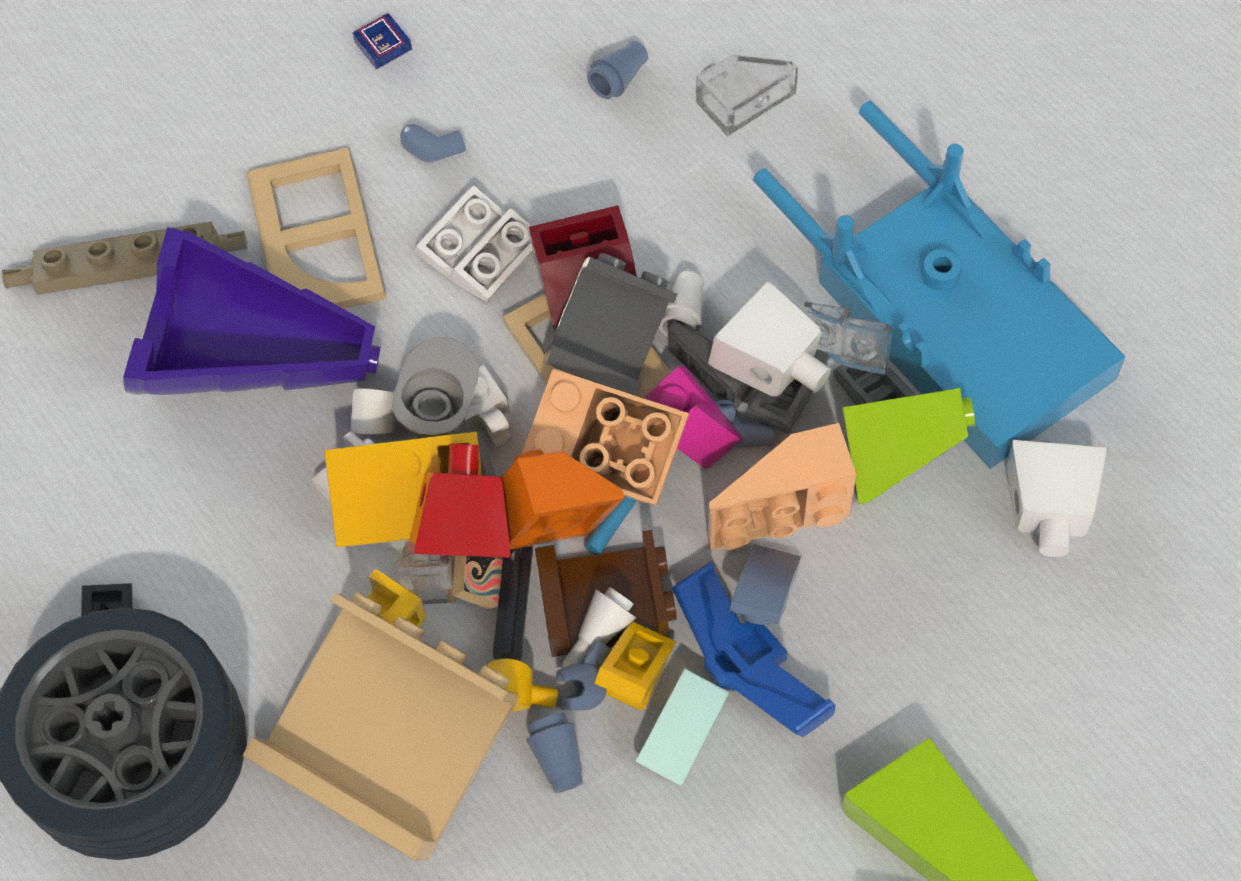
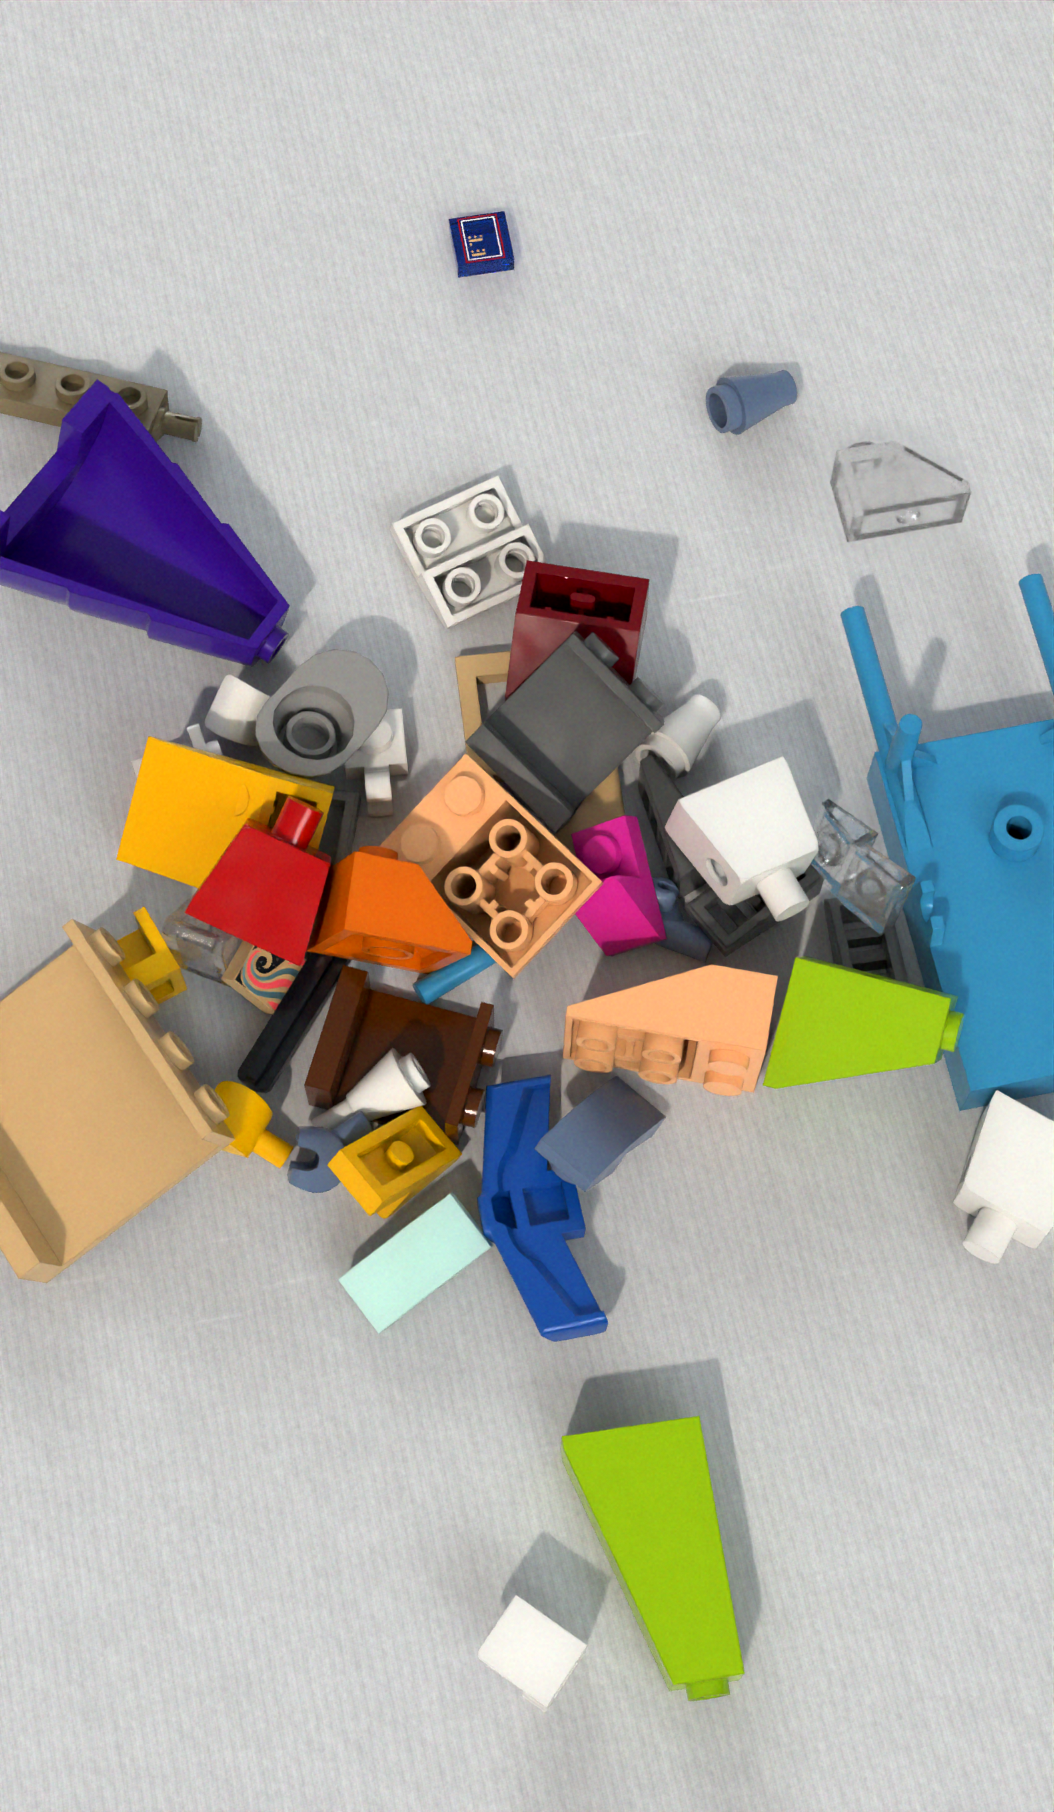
camera: 20 degrees right, 5 degrees up
(279, 242) = (236, 449): tan window -> none
(429, 146) = (470, 402): sand blue arm -> none
(556, 751) = (253, 1223): sand blue cone -> none

